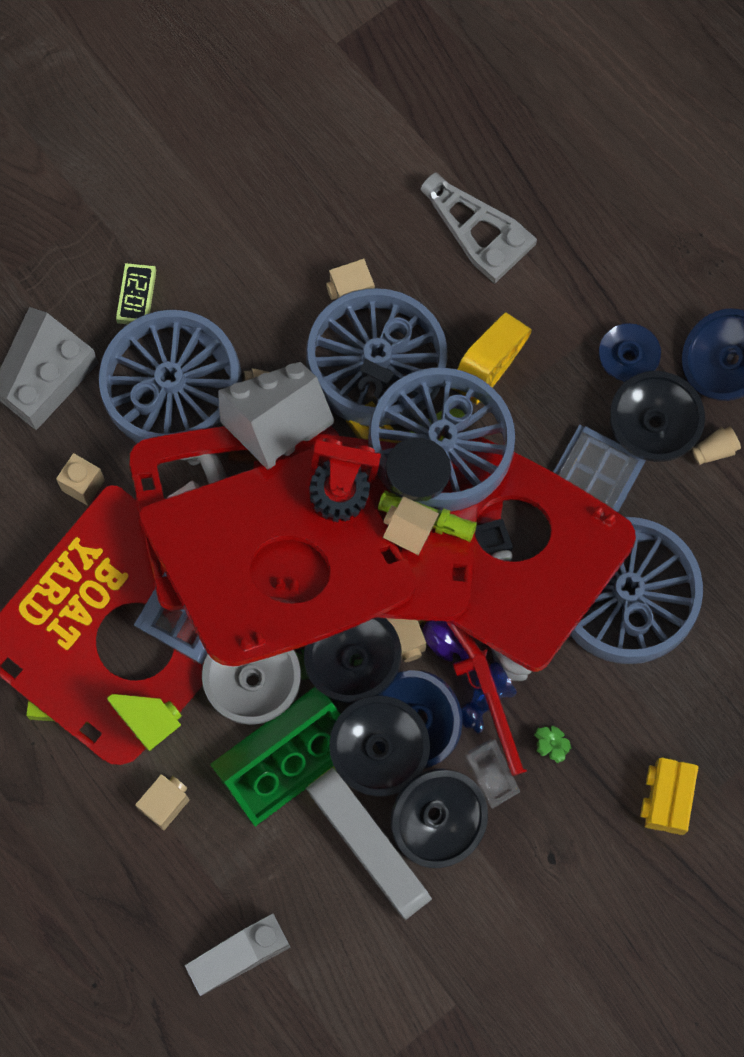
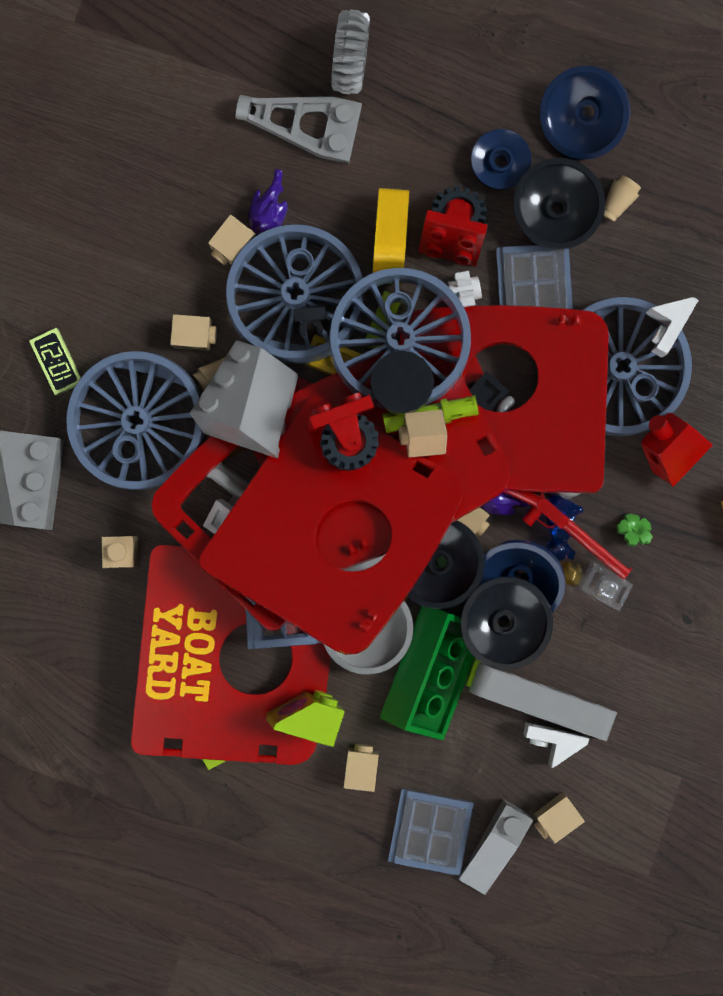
camera: 30 degrees left, 15 degrees up
(188, 903) = (430, 831): none -> clear piece
(267, 337) = (192, 333): none -> tan brick
(313, 963) = (557, 818): none -> tan brick
(364, 896) = (563, 742): none -> white slope
(398, 273) = (267, 212): none -> dark purple piece
(451, 831) = (597, 649): black dish -> none
(466, 744) = (572, 575): none -> clear yellow hinge
(529, 440) = (466, 288): none -> white gear
(551, 383) = (455, 227): none -> red plate
(552, 189) = (350, 51): none -> light grey gear
(632, 685) = (673, 447): none -> red torso
(701, 567) = (674, 317): none -> white slope

